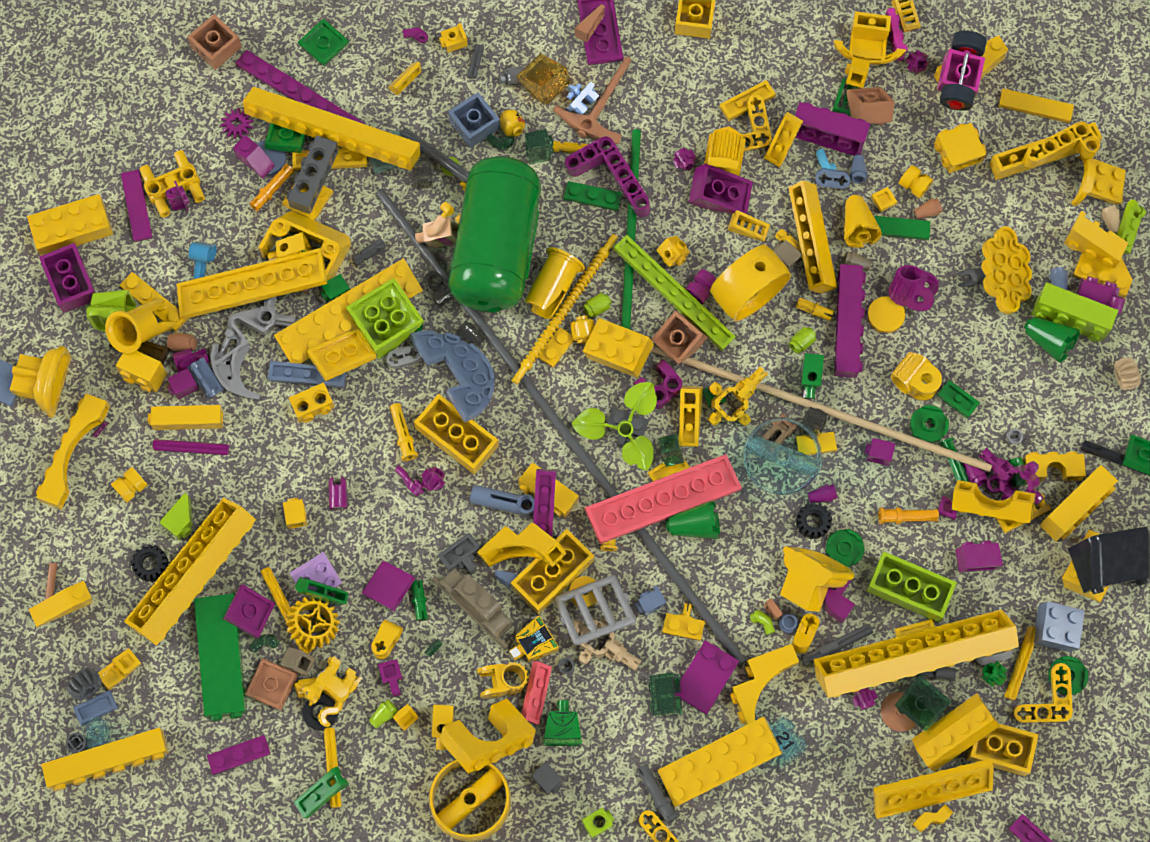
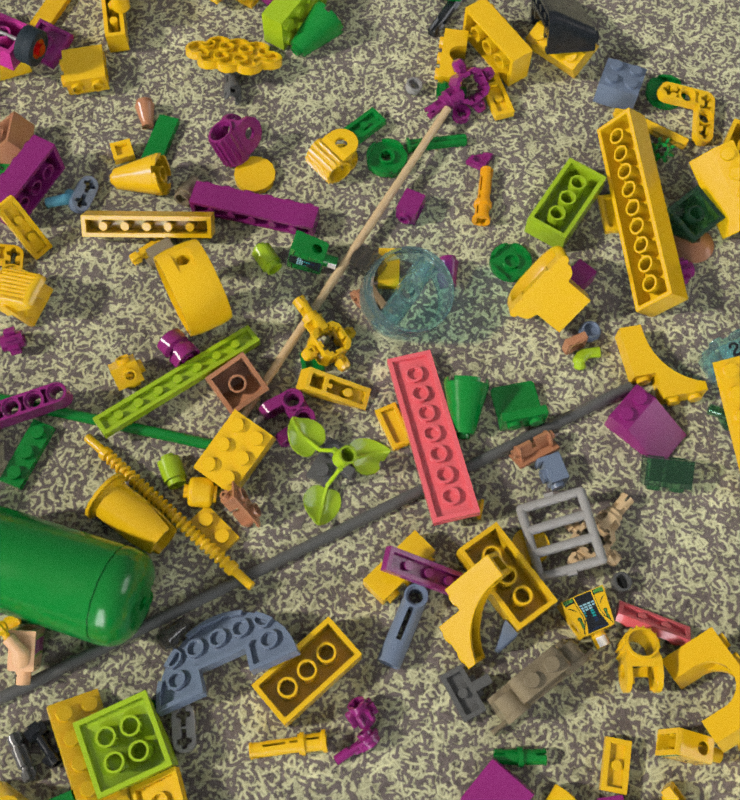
camera: 80 degrees left, 5 degrees down
(386, 257) = (37, 733): none -> black bar
(423, 672) = (615, 765): none -> yellow plate
(433, 648) = (585, 746): clear green tile -> none
(439, 292) = (103, 666): clear smoke piece -> none
(562, 727) = (697, 598): green torso -> none
(577, 361) = (247, 511): none -> nougat hinge
(670, 589) = (528, 452): none -> nougat hinge
(671, 450) = (380, 419): clear green brick -> none
(684, 625) = (581, 441): yellow plate -> none
(704, 567) = (518, 406): none -> green bracket
(719, 190) = (63, 311): magenta slope -> none
(739, 229) = (112, 302): yellow slope -> none
(802, 641) = (606, 317): yellow piece -> none
(814, 309) = (232, 240): yellow axle -> none
(816, 509) = (477, 274): black tyre -> none
(837, 644) = (618, 289): dark grey axle -> none
(858, 170) = (80, 168): sand blue cone -> none
(915, 181) = (111, 116): yellow wheel -> none
(970, 499) = (496, 90): yellow arch -> none
(975, 474) = (449, 127): magenta cone -> none
(978, 557) = (539, 139): magenta brick -> none
(985, 110) = (57, 40): none -> magenta tile
(1059, 277) = (251, 16): sand blue cone -> none

